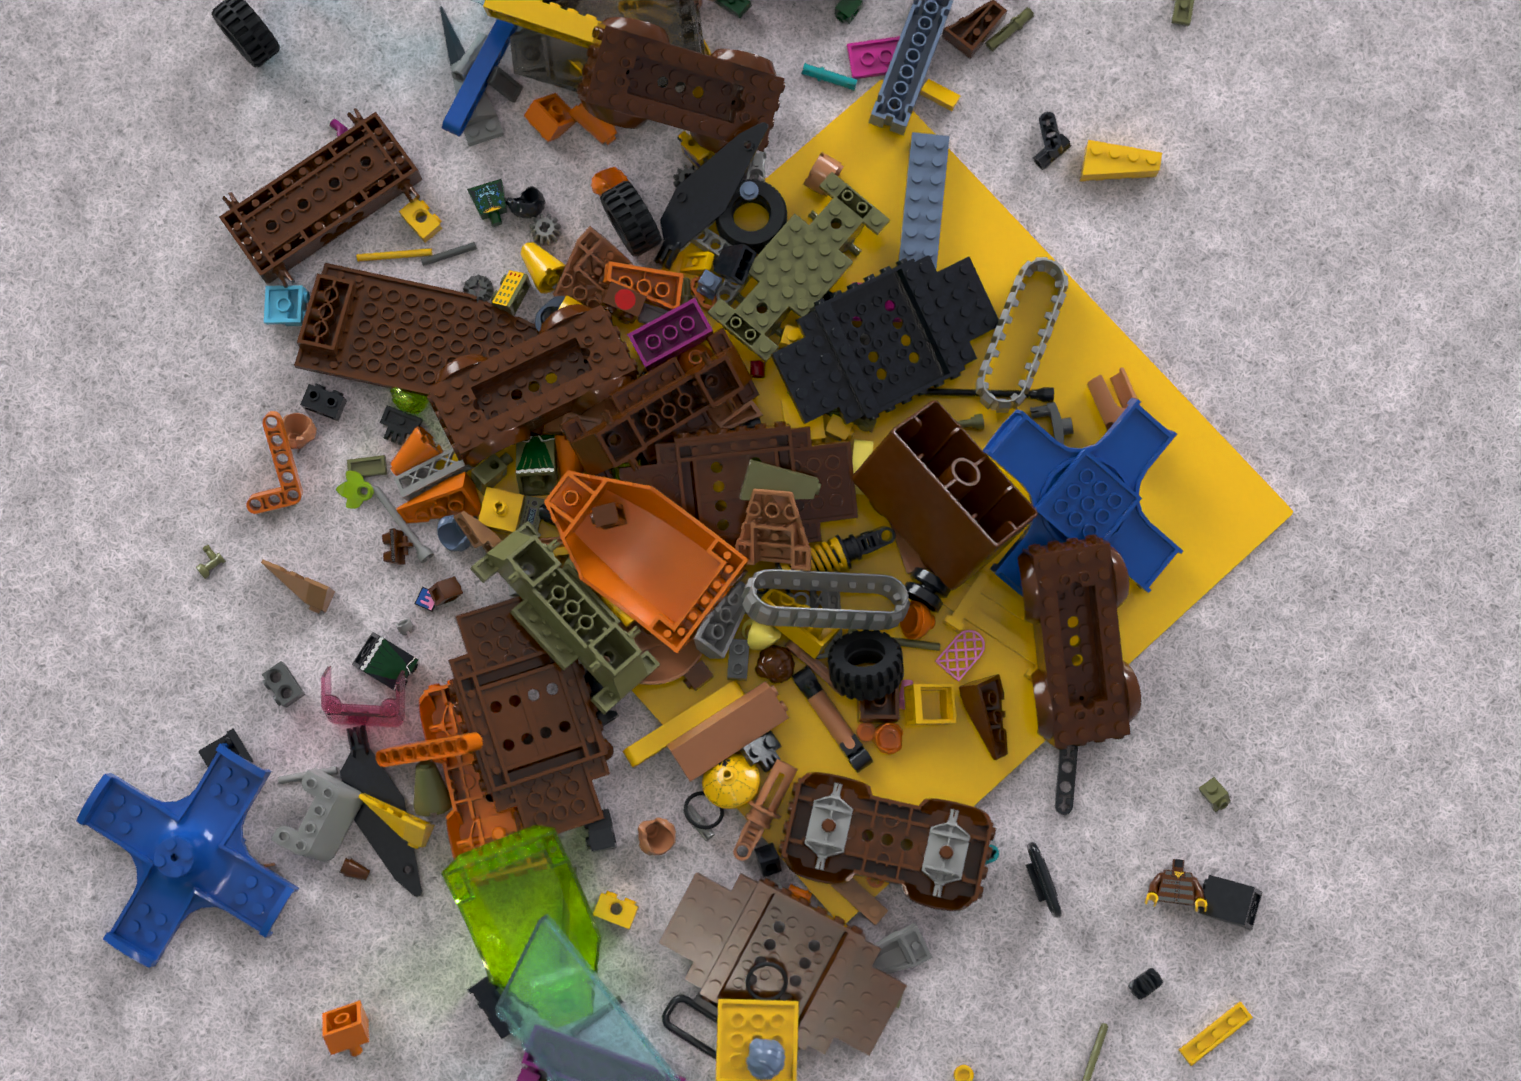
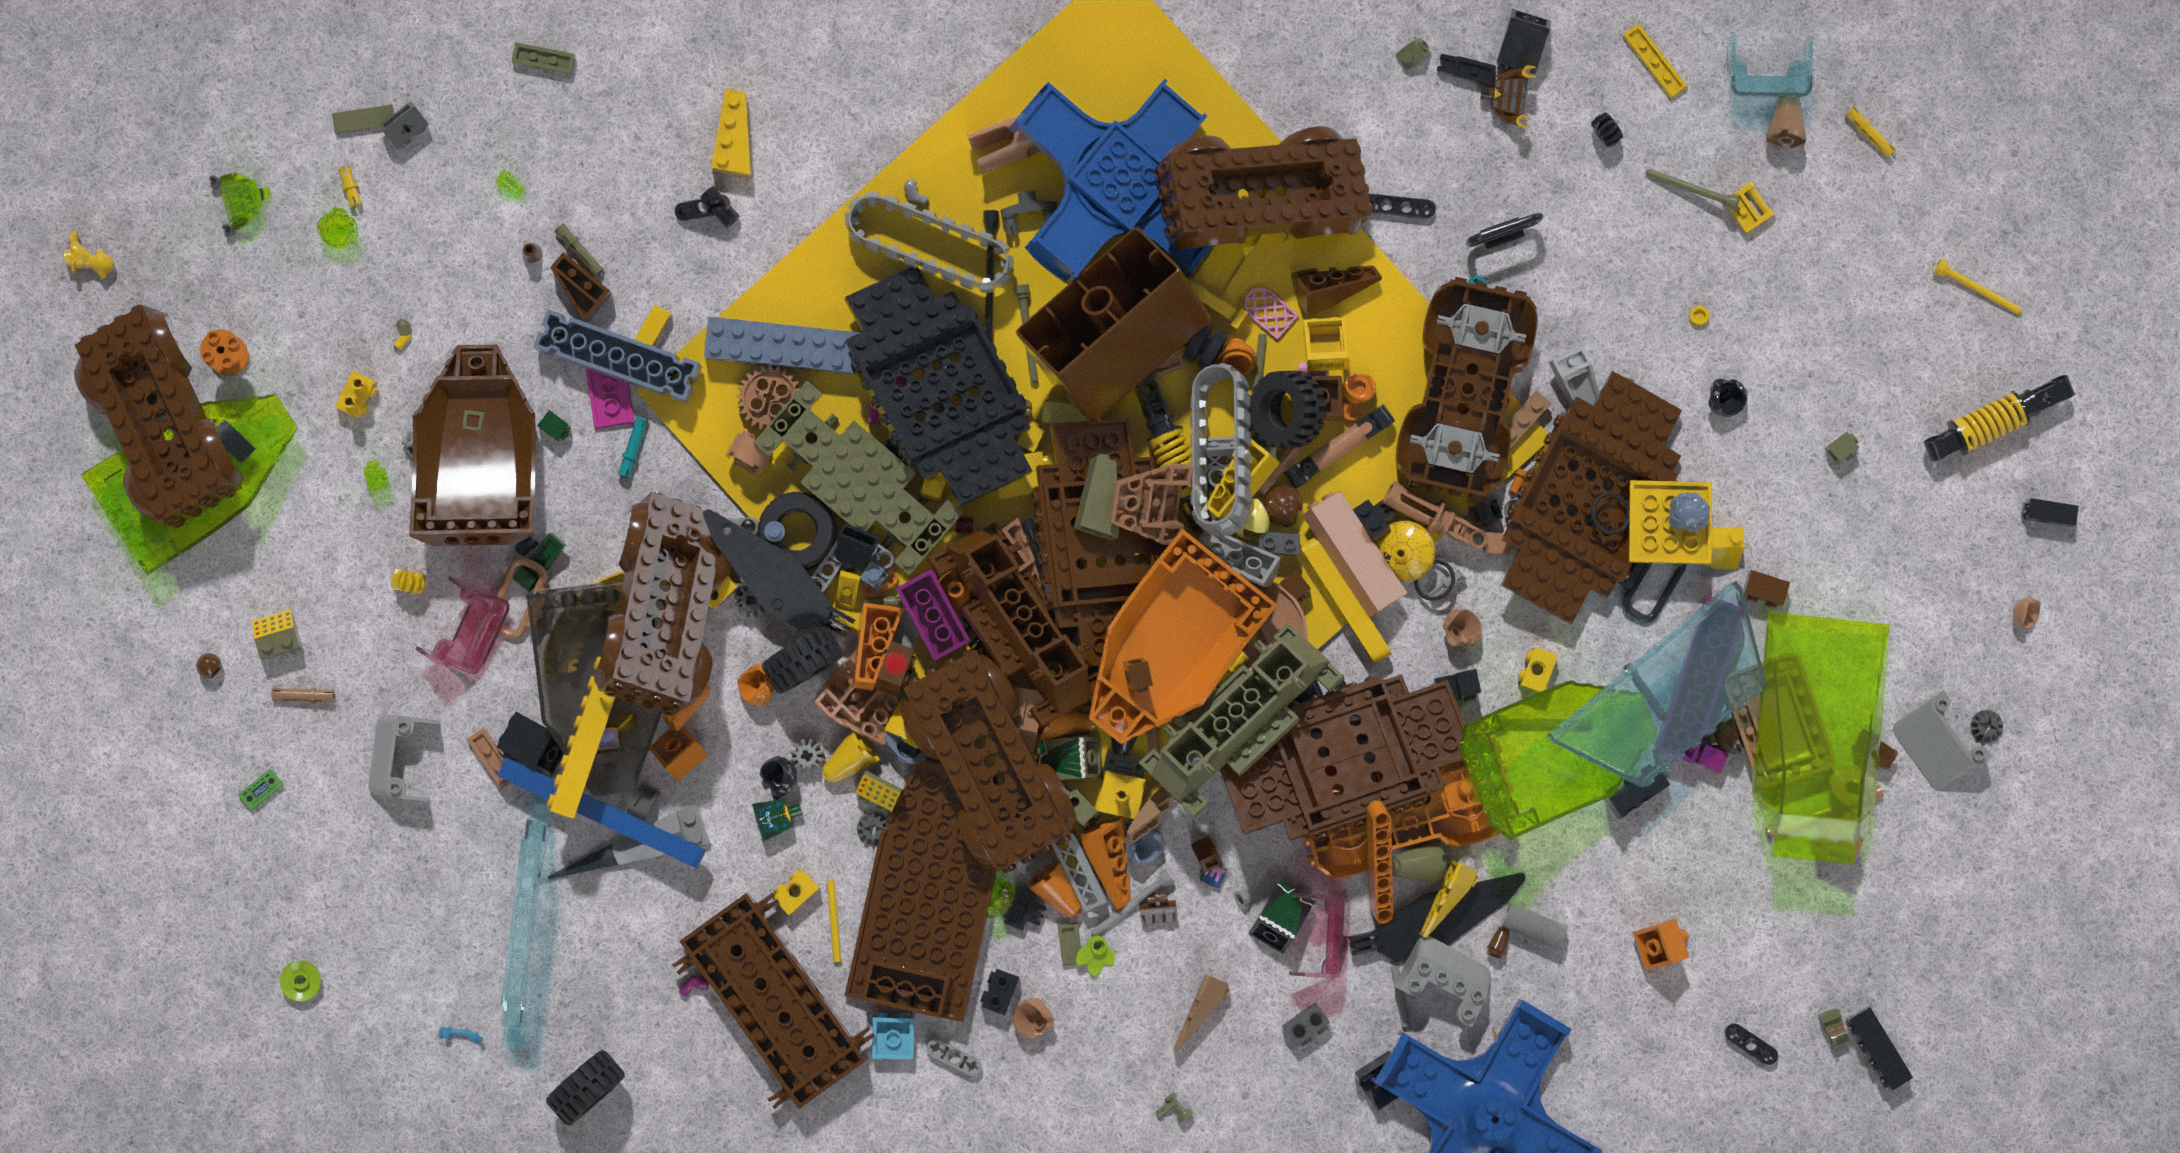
camera: 95 degrees left, 5 degrees up
(254, 371) = (955, 1065): none -> light grey beam
(281, 467) = (1075, 1030): orange beam -> none
(371, 897) = (1528, 923): none -> light grey piece
(449, 253) = (832, 861): dark grey bar -> none
(467, 60) = (612, 839): light grey axle -> none
(562, 51) = (609, 738): none -> tile
(737, 867) = (1496, 545): none -> nougat brick
(880, 178) = (751, 393): none -> nougat gear
(1066, 323) = (912, 192): none -> light grey arm
(1201, 848) = (1468, 69): none -> black hinge

